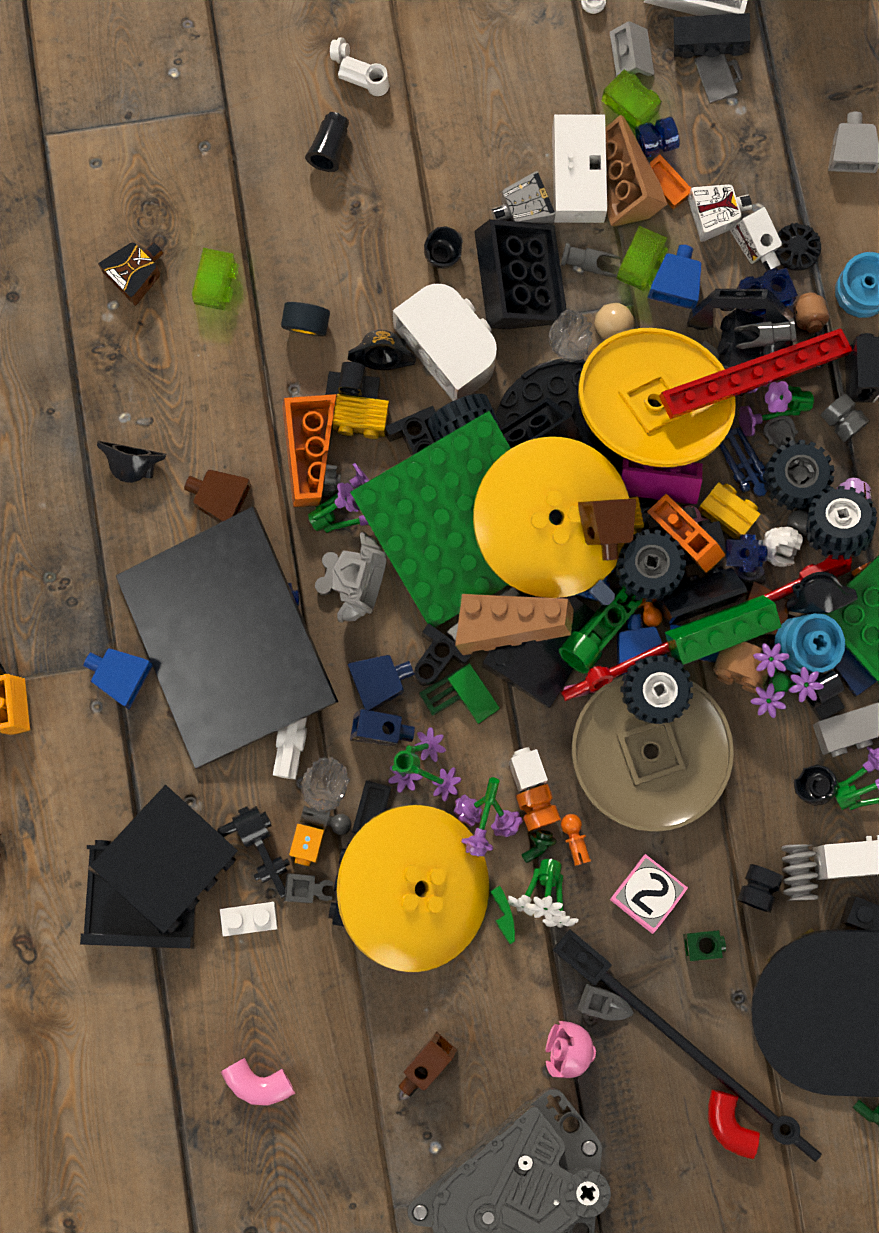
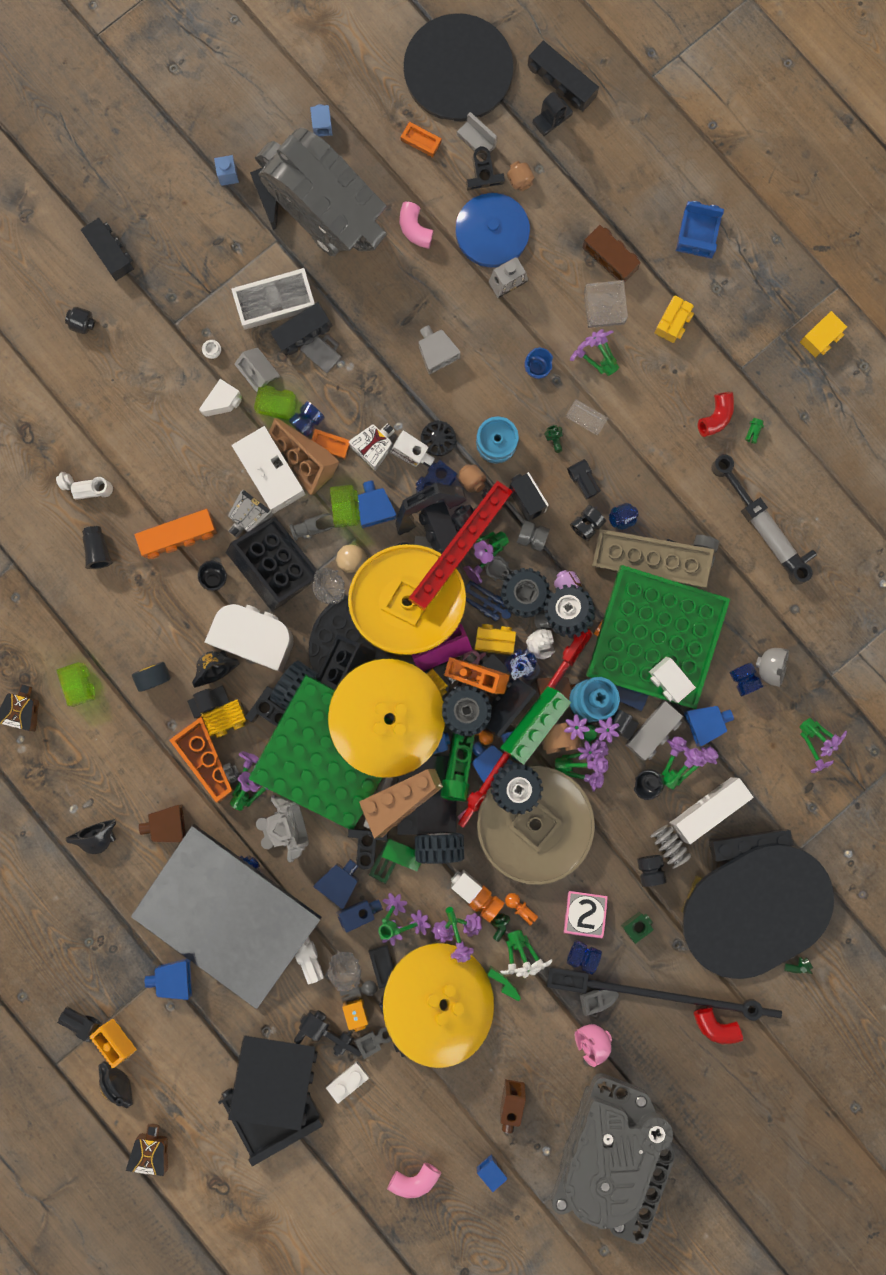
camera: 30 degrees left, 5 degrees up
(355, 1130) = (491, 1173): none -> blue panel
(429, 179) = (176, 534): none -> orange brick
(523, 706) = (439, 848): none -> black wheel
(570, 61) = (221, 399): none -> white slope
(602, 593) = (446, 745): sand blue piece -> none
(608, 524) = (424, 703): reddish brown torso -> none
(618, 941) = (584, 957): none -> clear blue wheel
(768, 333) = (454, 512): dark grey piece -> none
(772, 719) = (599, 765): none -> plant
(820, 594) = (583, 665): black hat -> none

